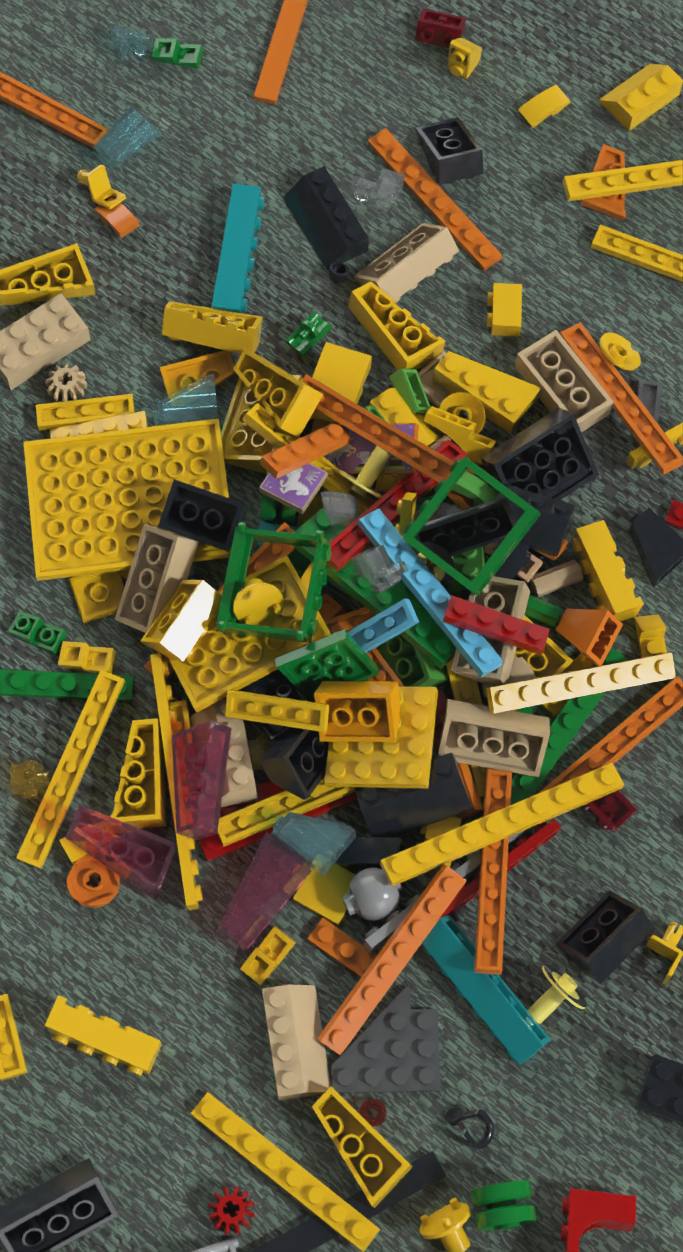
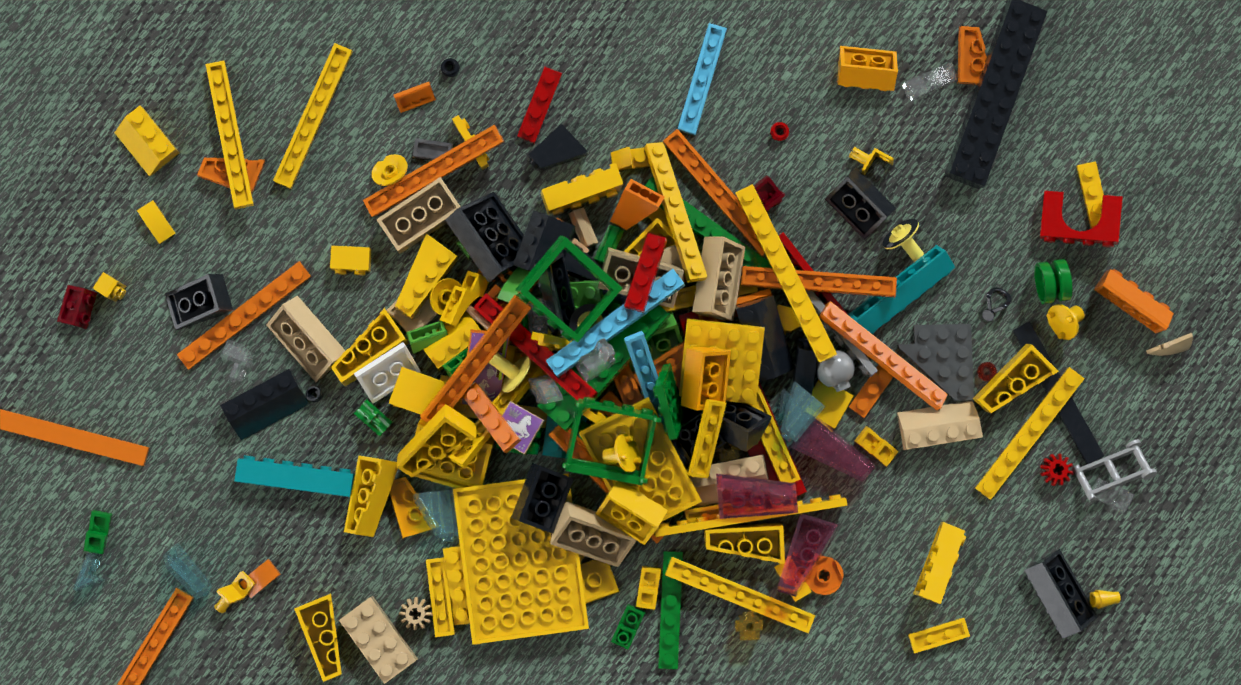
camera: 95 degrees left, 15 degrees up
(362, 334) = (381, 374): none -> white plate

